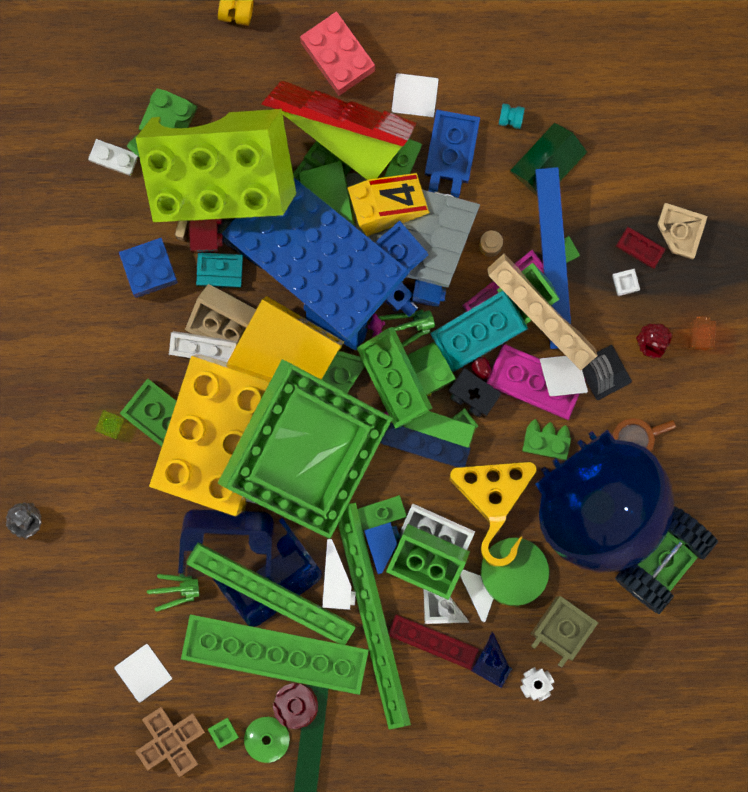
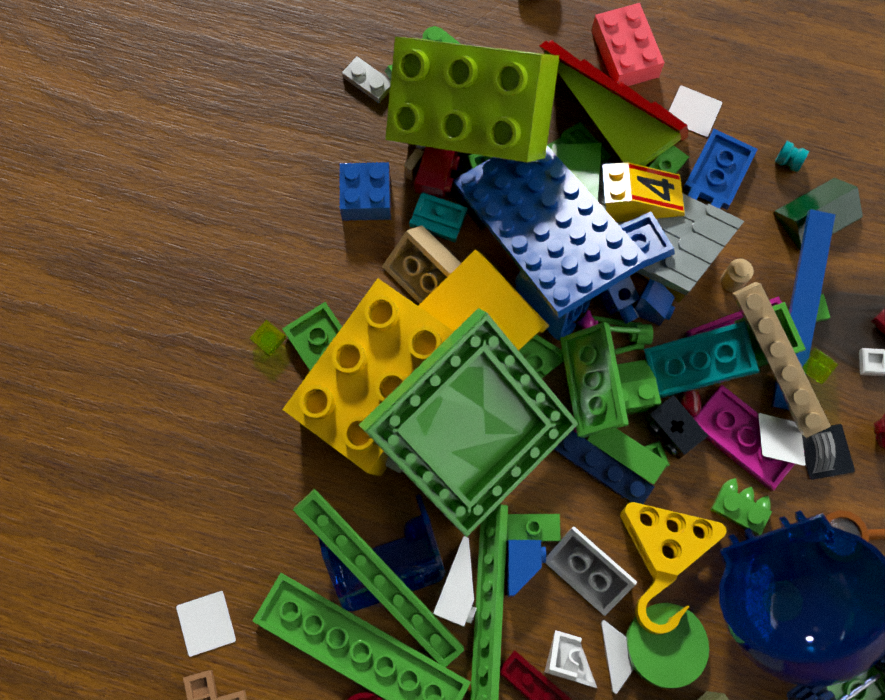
camera: 20 degrees right, 10 degrees down
(23, 520) = (137, 408): flat silver piece -> none
(187, 587) = (290, 542): bright green plant -> none
(190, 344) = (408, 289): white plate -> none
(255, 524) = (387, 495): clear blue windscreen -> none
(428, 561) = (572, 600): bright green brick -> none
(579, 301) = (819, 365): none -> clear neon green bracket

